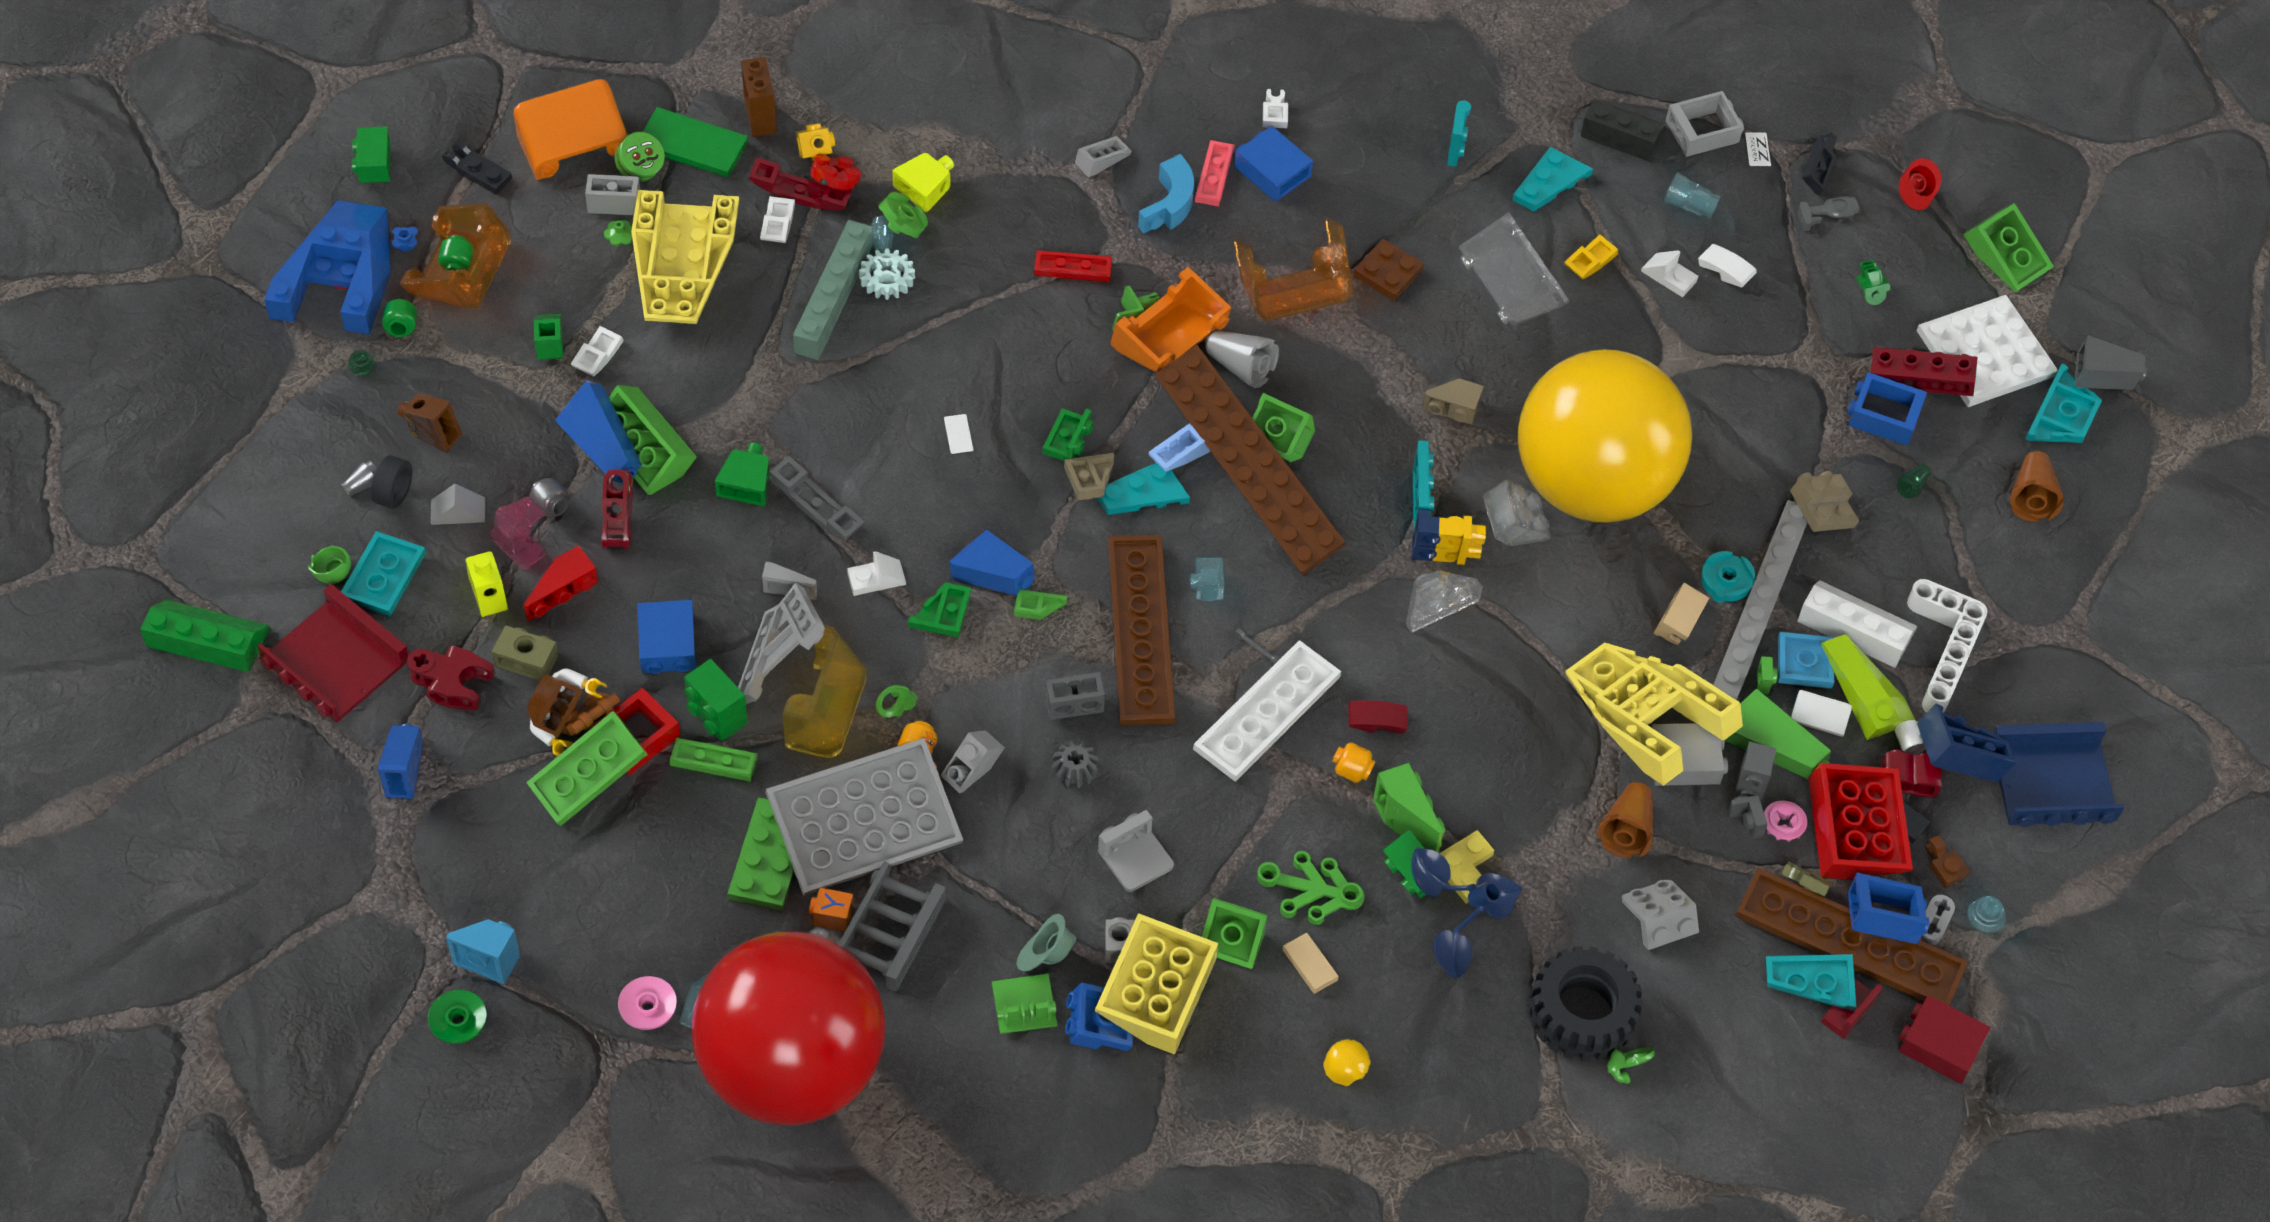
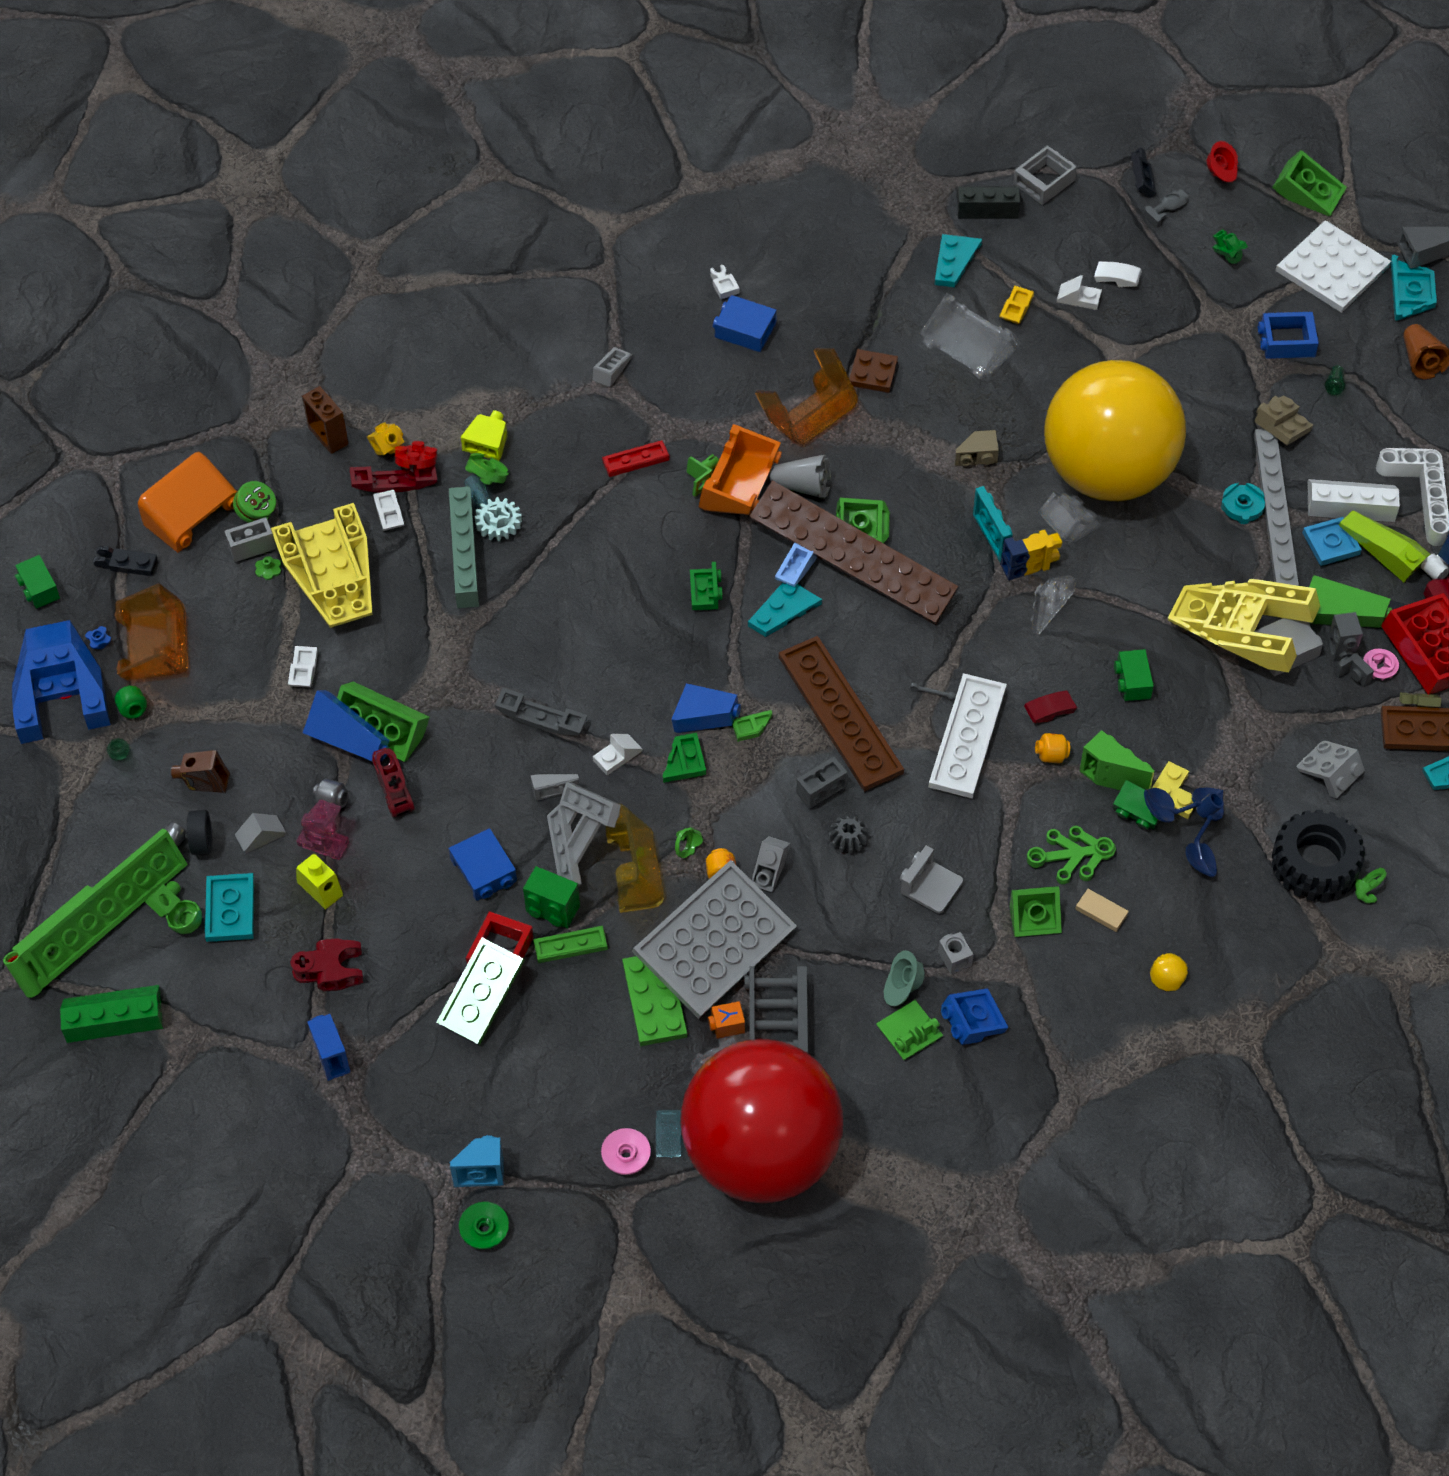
camera: 20 degrees left, 0 degrees up
(238, 522) = (92, 914): none -> bright green hinge
(319, 537) = (164, 898): none -> bright green bracket
(336, 656) = (227, 986): dark red panel -> none
(455, 253) = (149, 634): green head -> none
(534, 664) = (388, 930): olive brick -> none
(548, 336) = (259, 669): green slope -> none
(554, 702) = (427, 950): reddish brown torso -> none
(563, 579) = (378, 851): red slope -> none
(589, 711) = (455, 948): dark orange plate -> none
(696, 142) = (290, 474): green tile -> none
(745, 476) = (475, 717): green torso -> none
(958, 433) = (618, 620): white sticker -> none
(1089, 474) = (738, 612): dark tan wing -> none
(1157, 982) = (1003, 971): light yellow slope -> none
(1173, 209) = (685, 366): dark azure arch -> none
(1208, 579) = (870, 654): clear light blue brick -> none
(1214, 173) = (703, 347): coral tile -> none
(1459, 133) = (873, 249): teal plate -> none
(1490, 718) = (1134, 675): none -> green brick
(1629, 822) = (1275, 710): dark orange cone -> none
(1681, 614) = (1226, 543): tan hinge -> none
(1691, 196) = (1065, 232): clear light blue plant -> none
(1758, 149) = (1091, 180): white sticker -> none
(1766, 675) = (1310, 563): bright green plate -> none
(1821, 713) = (1363, 574): white slope -> none
(1927, 370) = (1303, 296): dark red brick -> none

